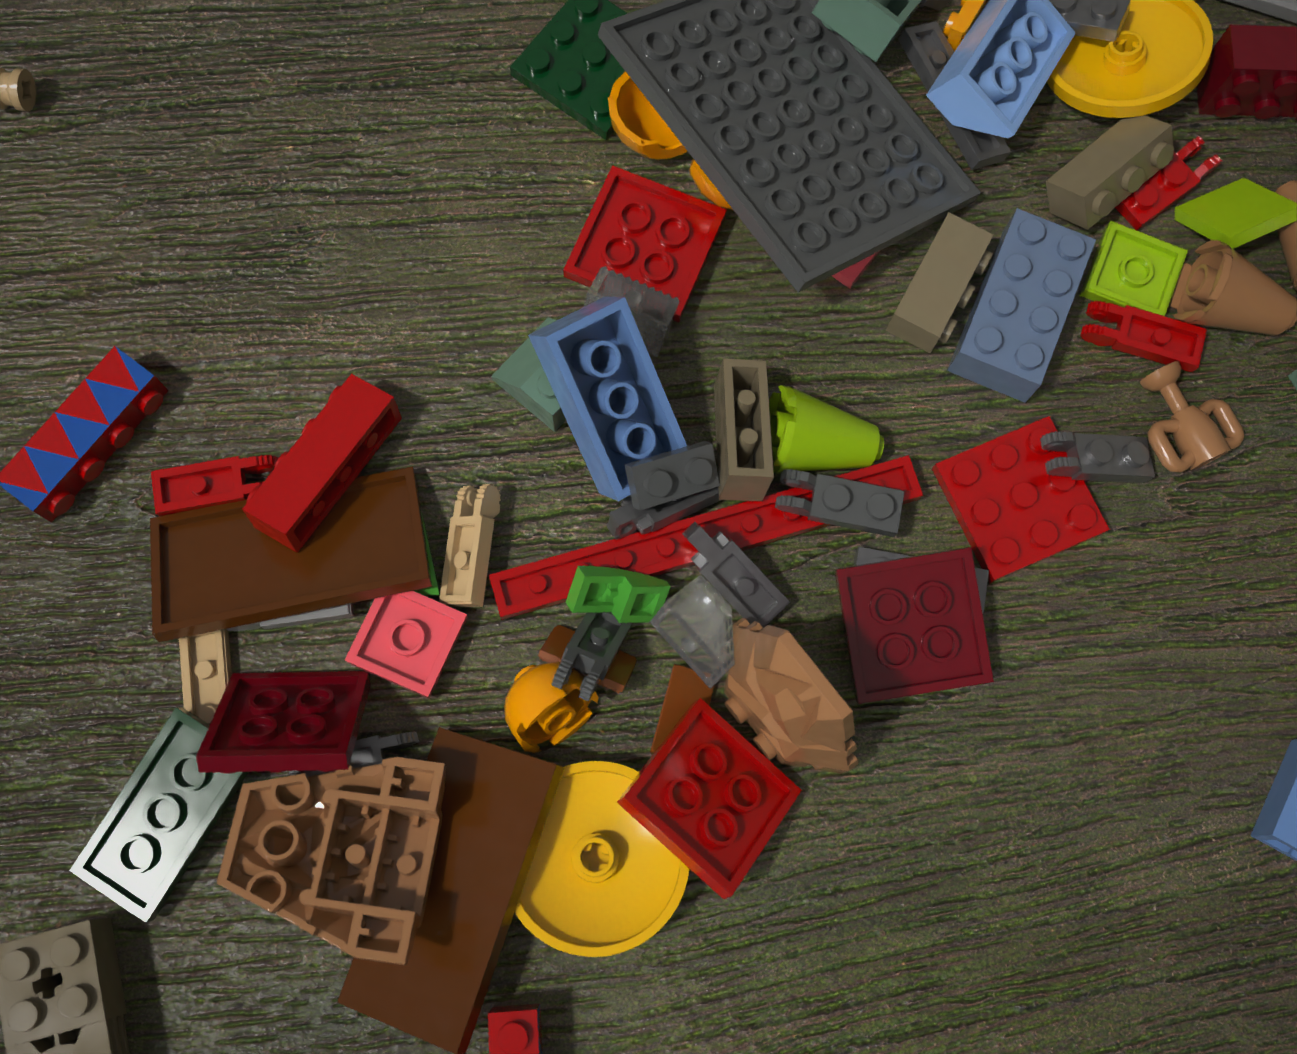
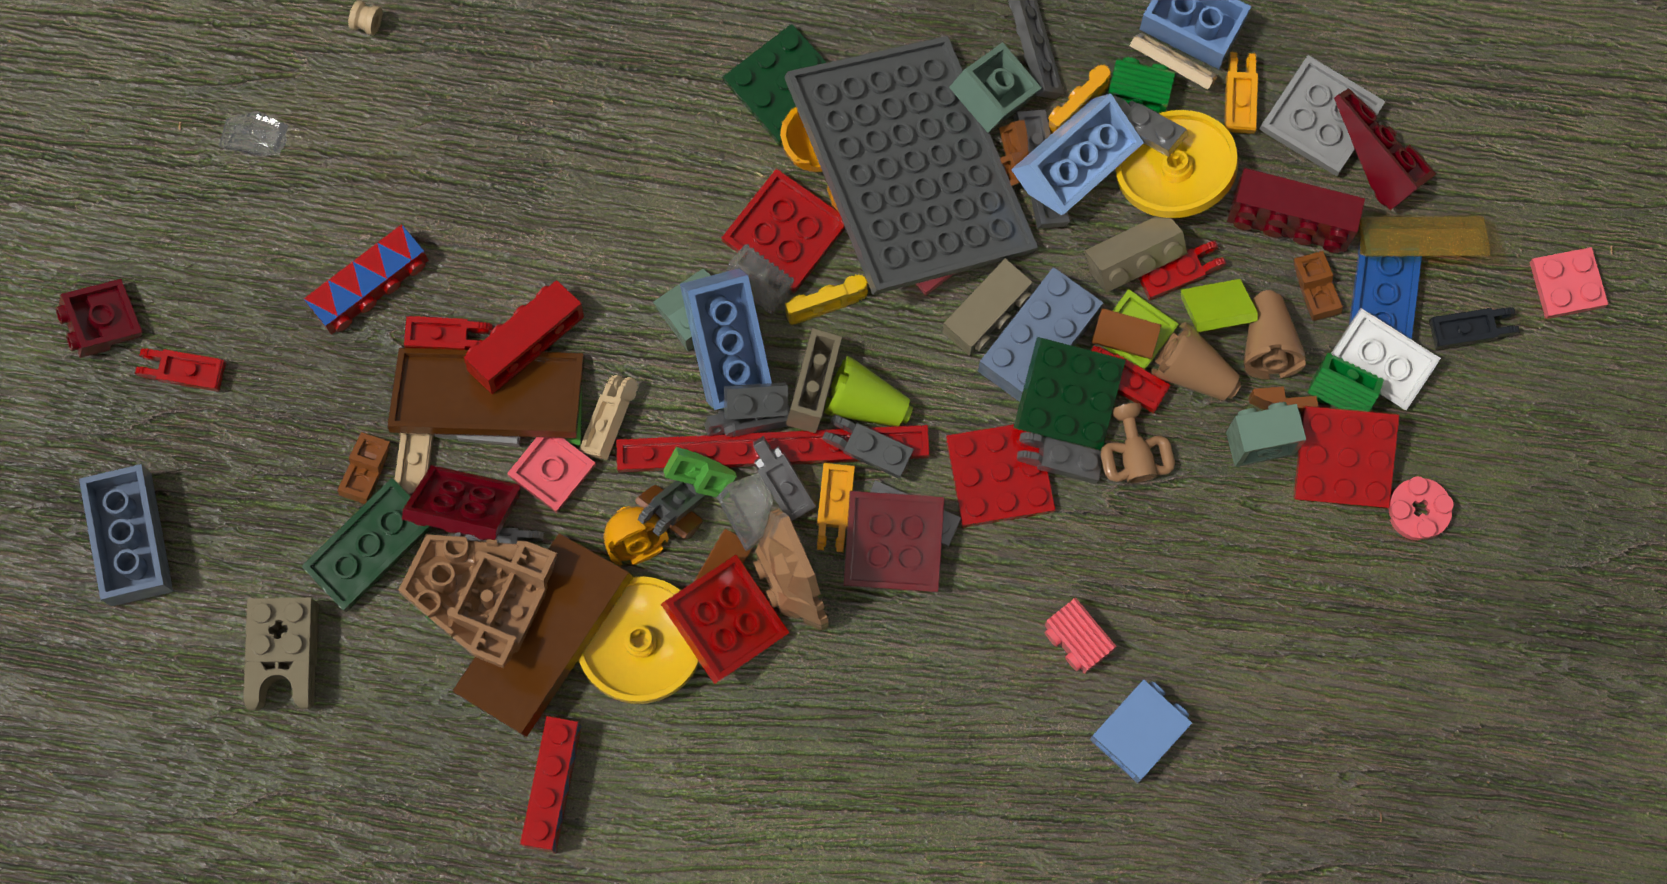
camera: 20 degrees right, 0 degrees up
(138, 701) = (364, 468): none -> dark orange slope
(725, 320) = (826, 300): none -> yellow hinge
(813, 591) = (834, 502): none -> light orange hinge
(915, 75) = (1015, 145): none -> dark orange slope
(1088, 367) = (1069, 393): none -> dark green plate
(1132, 274) = (1126, 333): none -> dark orange slope
(1200, 696) = (1078, 636): none -> coral brick

